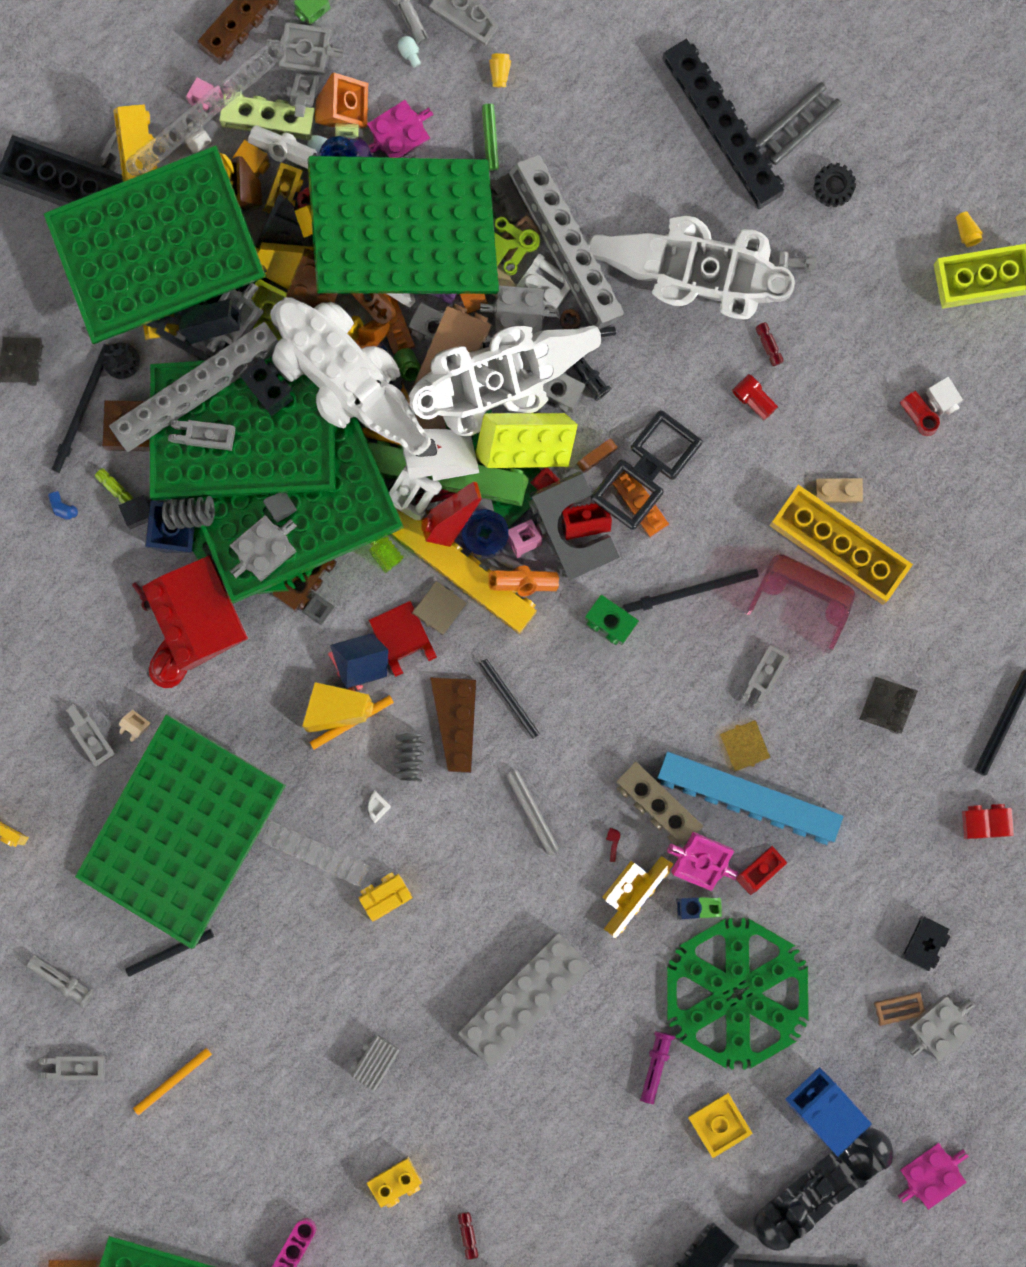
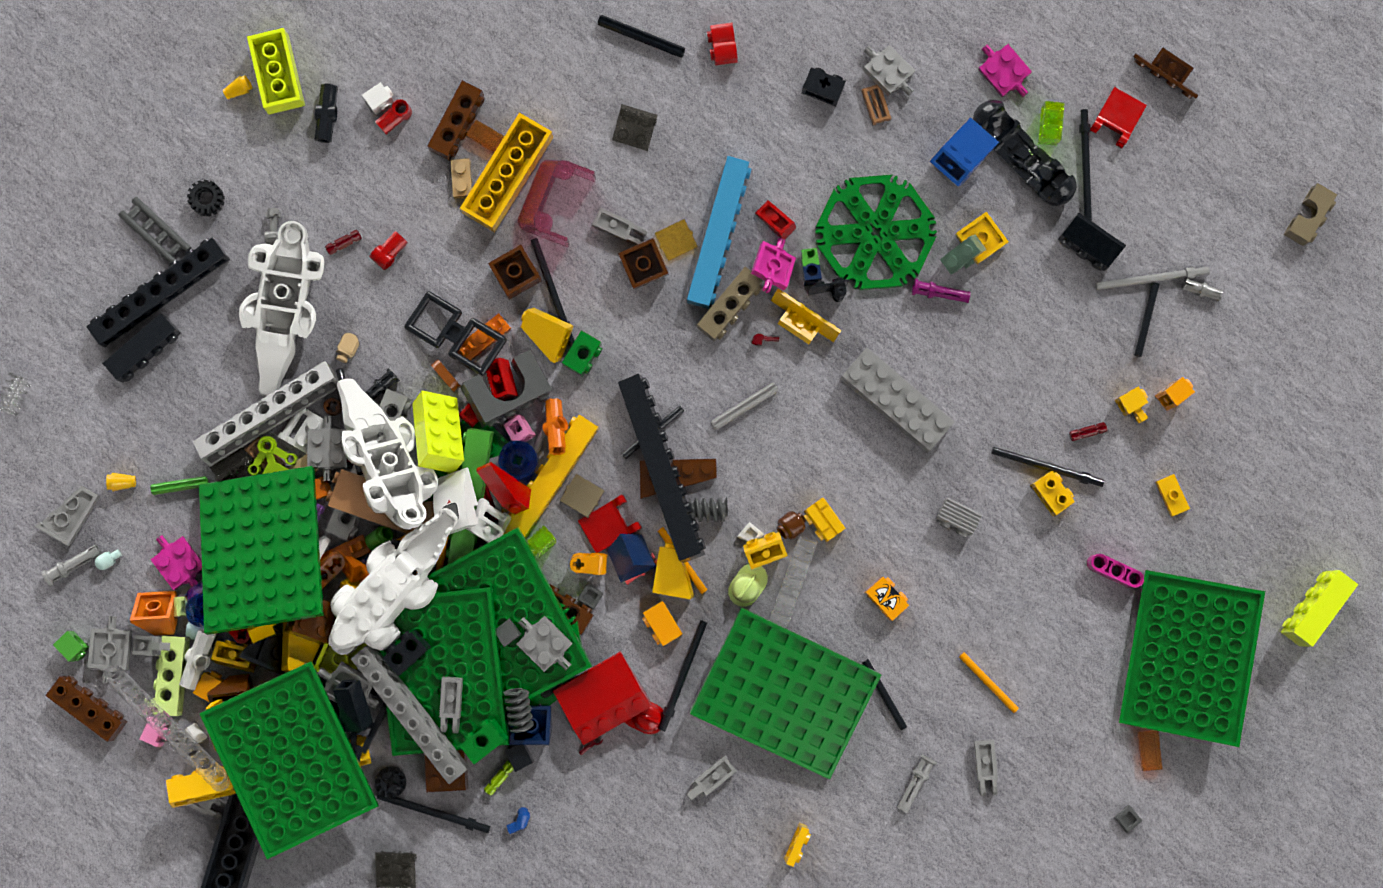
camera: 95 degrees left, 0 degrees up
(133, 724) = (699, 741): tan tile -> none
(146, 459) = (474, 749): none -> green brick
(173, 691) = (669, 710): none -> black bar
(277, 691) = (662, 624): none -> light orange brick
(284, 965) = (887, 598): none -> light orange brick
(316, 799) = (747, 585): none -> yellowish green piece
(354, 821) = (765, 550): none -> yellow brick
(356, 613) = (591, 563): none -> light orange piece
(382, 856) = (791, 525): none -> reddish brown head
(412, 1223) = (1083, 477): none -> black bar
(463, 704) = (661, 468): none -> black brick
(639, 579) = (547, 332): none -> yellow slope
(640, 341) = (347, 347): none -> tan arm
(656, 101) = (141, 348): none -> black brick
(669, 937) = (837, 288): none -> black hinge
(698, 1098) = (963, 254): none -> sand green brick
(715, 703) = (643, 263): none -> reddish brown brick
(716, 546) = (515, 272): none -> reddish brown brick
(859, 1227) = (1051, 123): none -> clear neon green brick
(889, 522) = (484, 136): none -> clear orange tile
(923, 487) = (464, 93): none -> reddish brown brick
(930, 333) = (326, 113): none -> black piece

